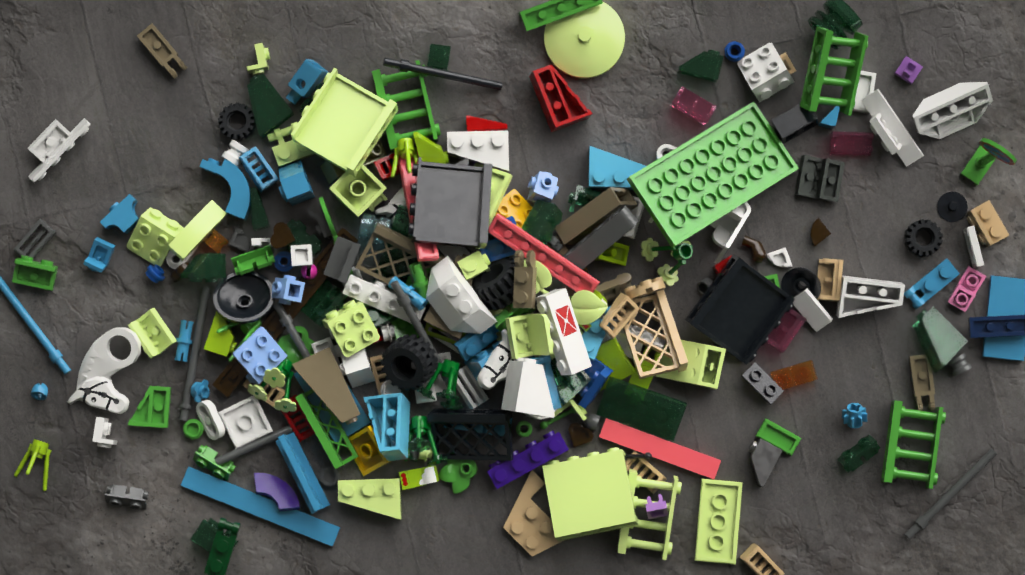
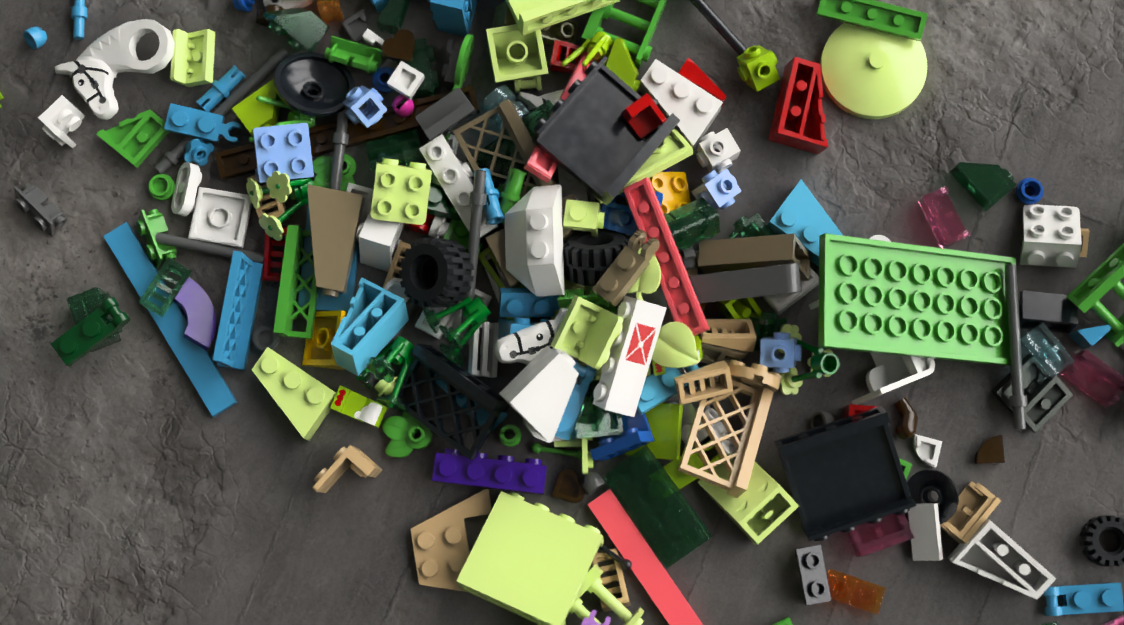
camera: 40 degrees right, 5 degrees down
(189, 373) = (199, 124): none -> dark azure plate
(242, 473) = (178, 269): none -> clear green slope
(447, 510) = (346, 458): none -> tan bracket
(467, 177) = (643, 116): none -> red panel
(513, 91) = (758, 67): none -> lime brick
(528, 155) = (717, 150): none -> white brick
(619, 267) = (732, 334): none -> tan slope
(632, 255) = (766, 326): none -> clear green bracket
(649, 269) = (770, 356): none -> light blue brick
(810, 147) = (1047, 350): none -> clear light blue hips
(813, 190) = (1018, 400): none -> dark grey bar

